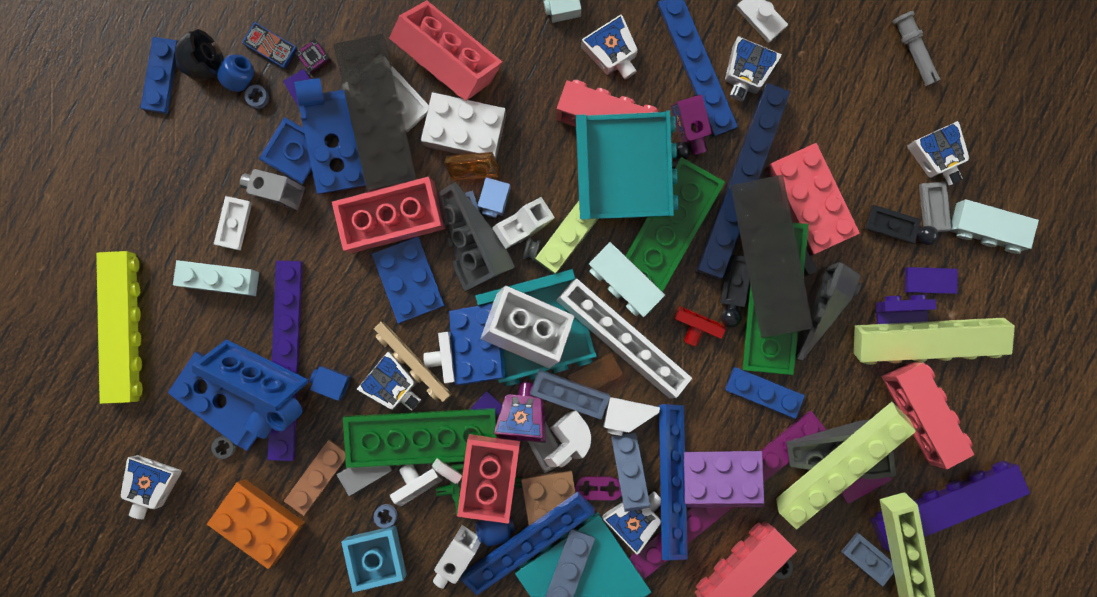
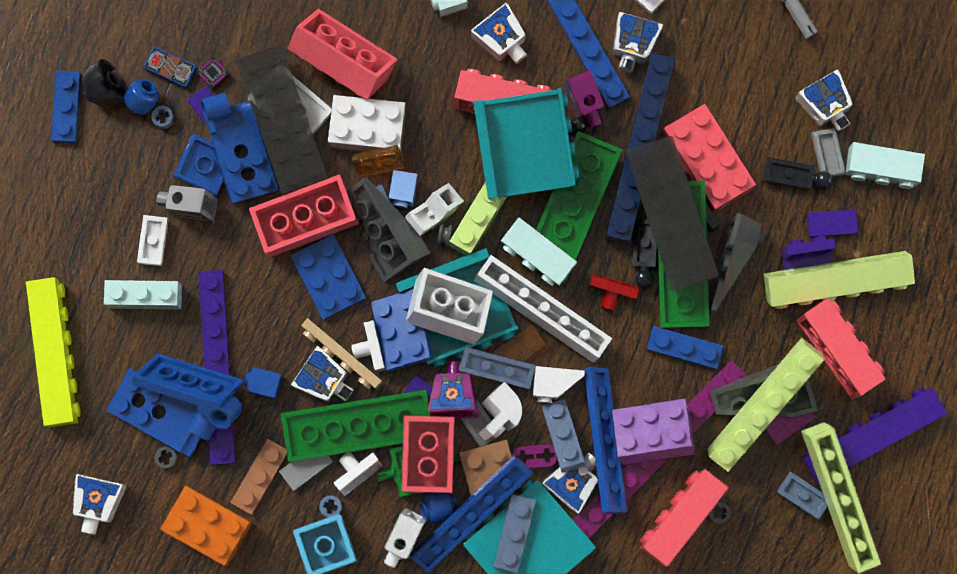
camera: 10 degrees left, 5 degrees down
(446, 471) = (386, 452): white tile -> none

